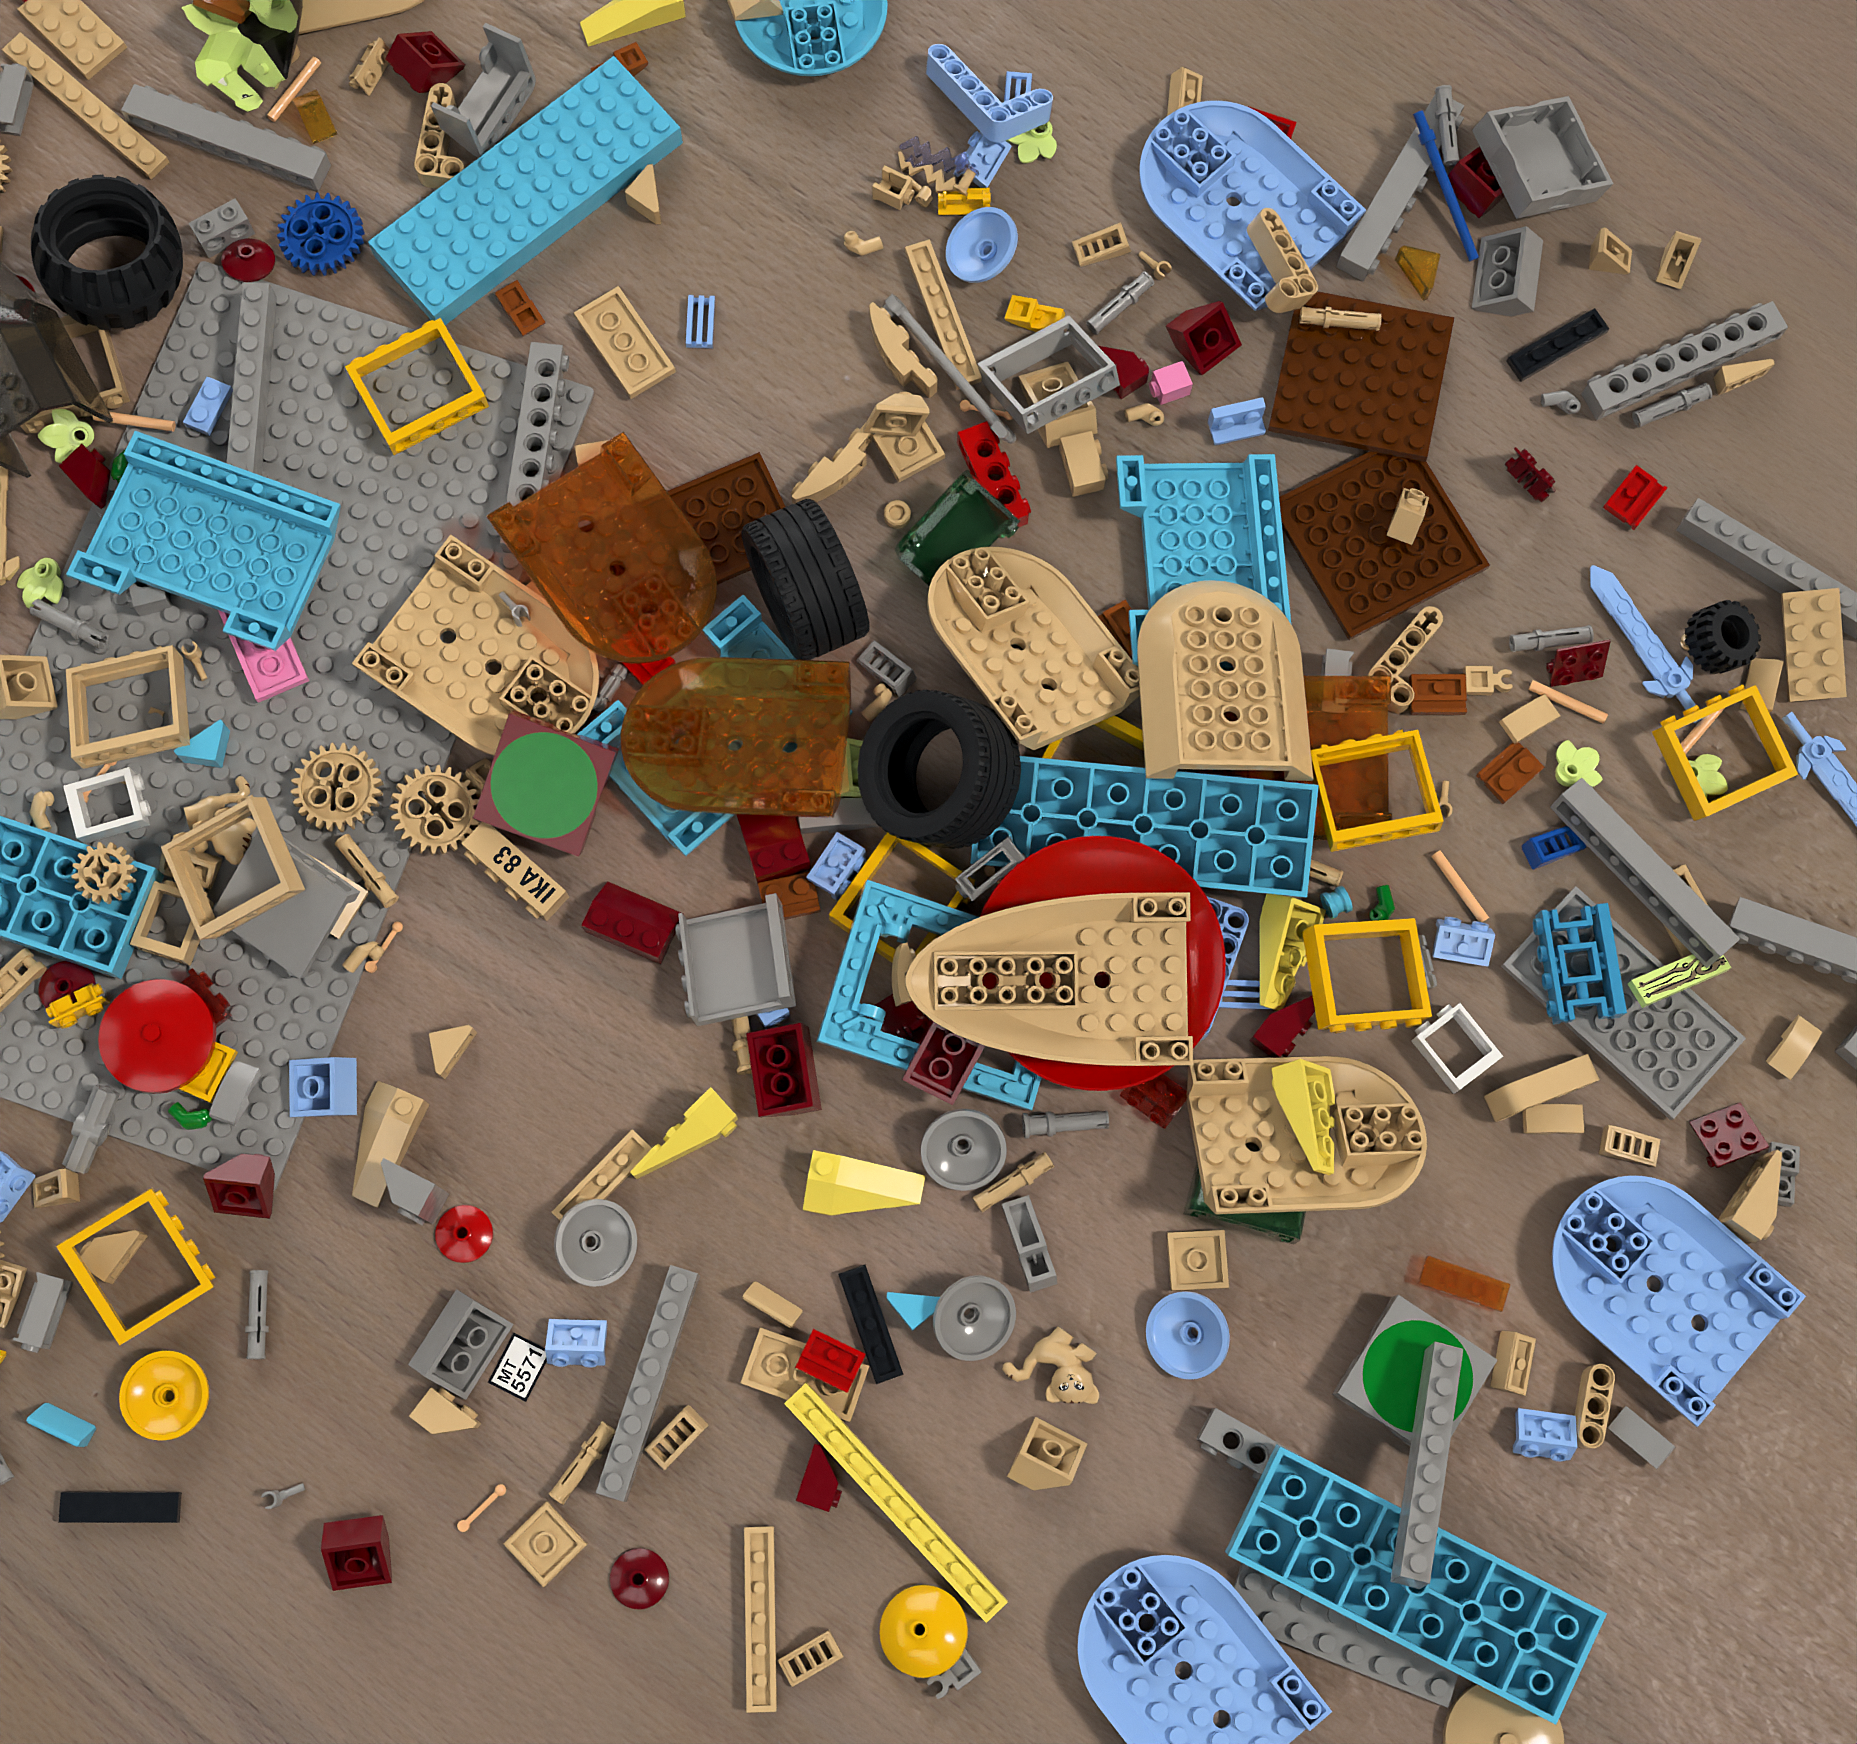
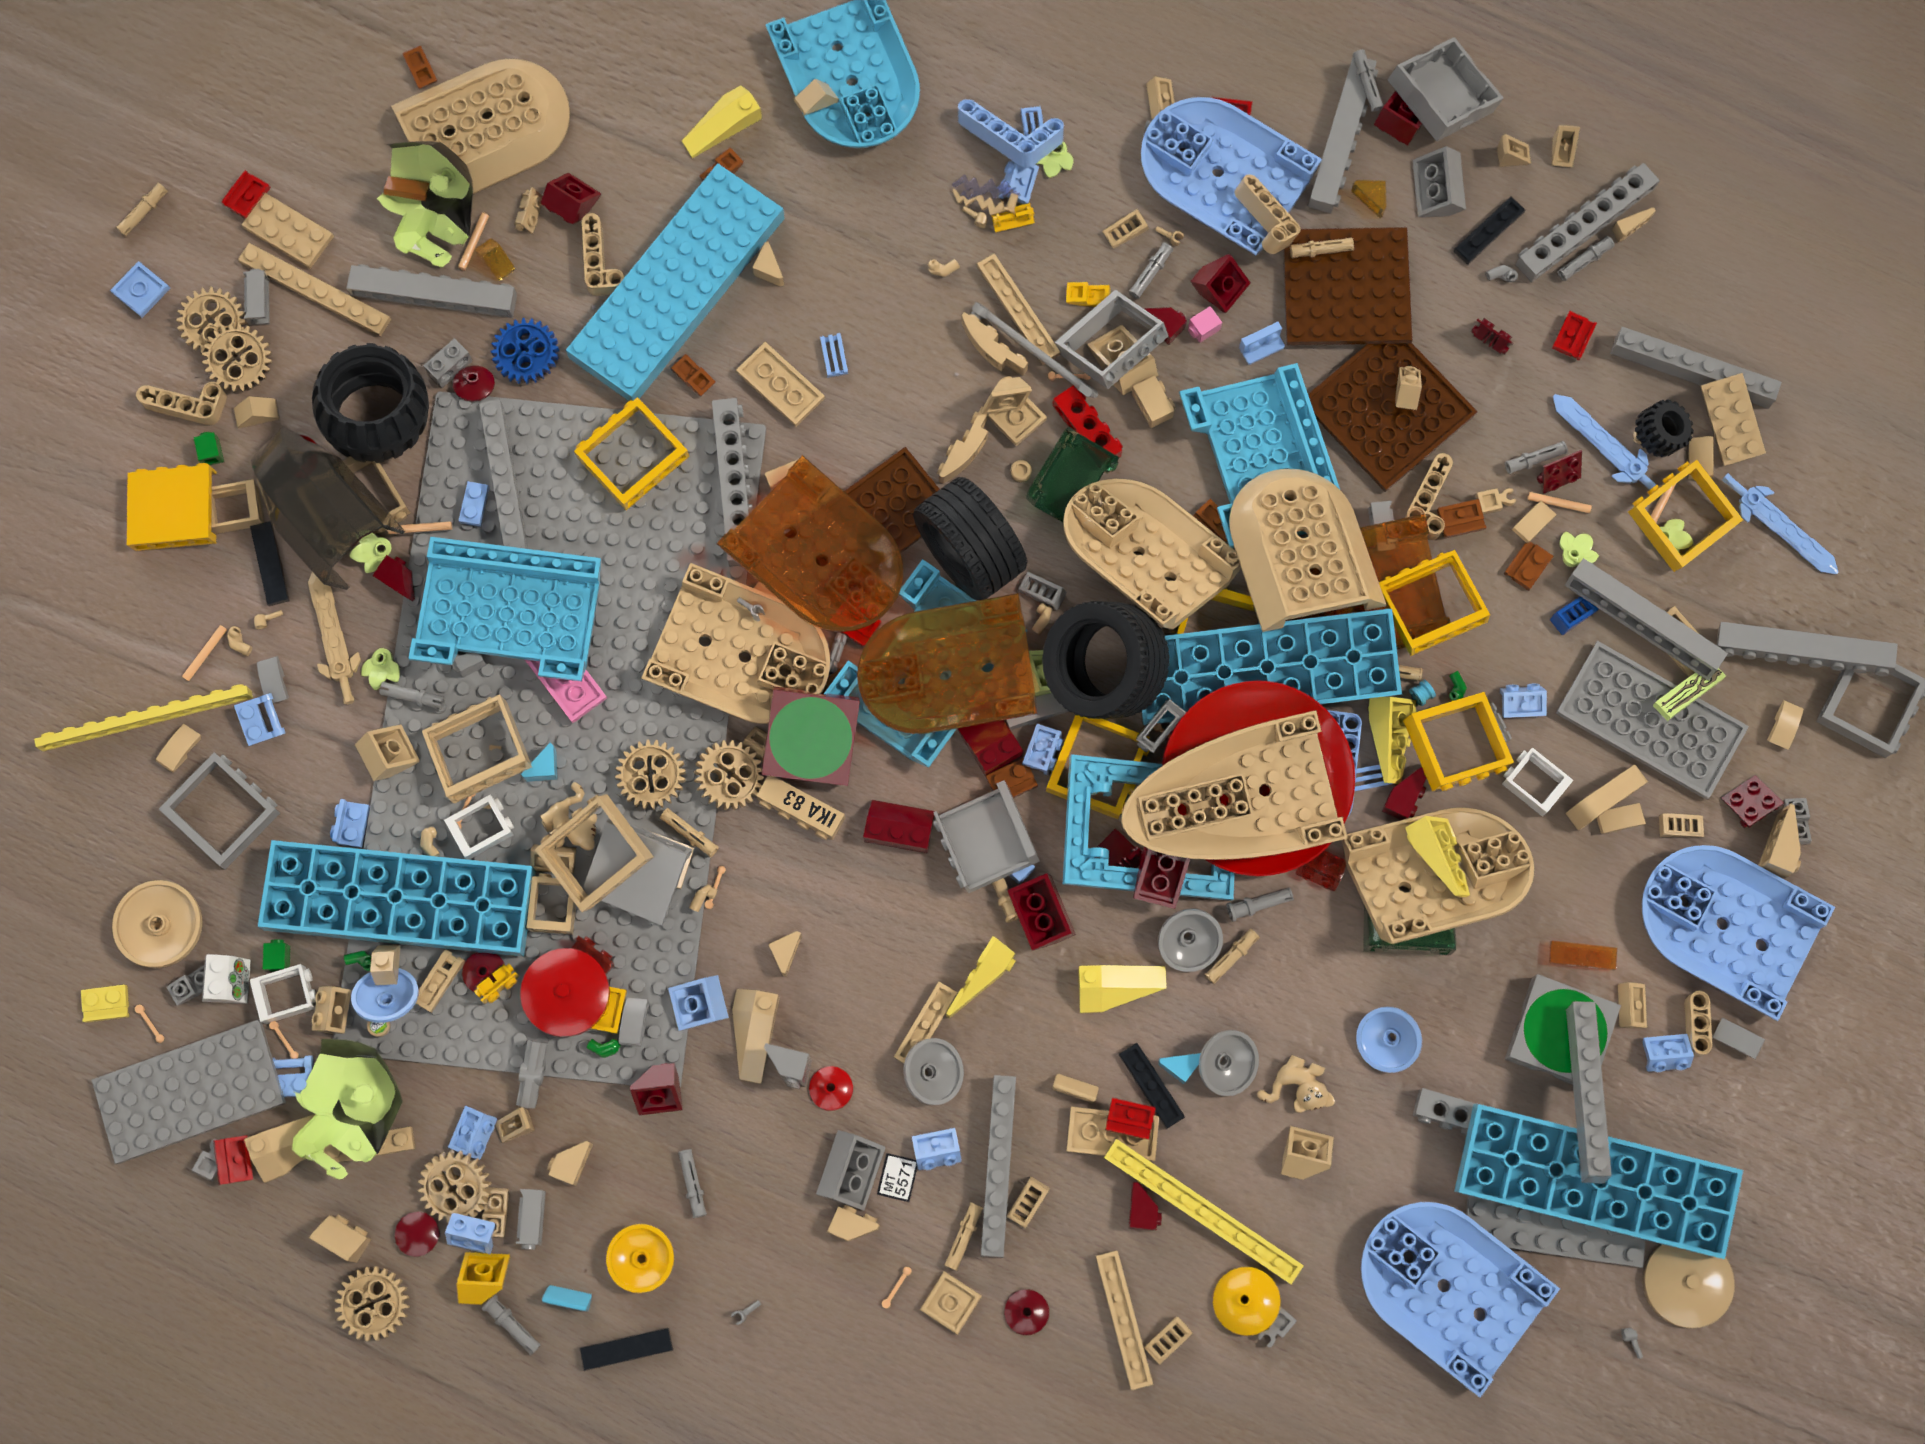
camera: 10 degrees left, 0 degrees up
(95, 1293) = (615, 1131): yellow window -> none
(113, 881) = (504, 876): tan gear -> none
(119, 466) = (418, 564): green arm -> none
(194, 657) = (515, 699): tan hand -> none
(357, 1552) = (813, 1341): dark red slope -> none
(494, 97) = (632, 214): light grey windscreen -> none
(897, 181) = (959, 213): tan window -> none
(902, 959) = (1113, 811): tan slope -> none
(974, 238) = (1027, 245): light blue dish -> none
(1029, 1244) = (1255, 999): light grey slope -> none
(1145, 412) = (1192, 351): tan arm -> none
(1197, 1260) = (1382, 983): tan plate -> none
(1427, 138) = (1355, 93): blue bar -> none
(1444, 798) = (1484, 596): tan hand -> none
(1460, 886) = (1511, 660): light nougat bar -> none
(1601, 957) = (1629, 691): dark azure fence -> none

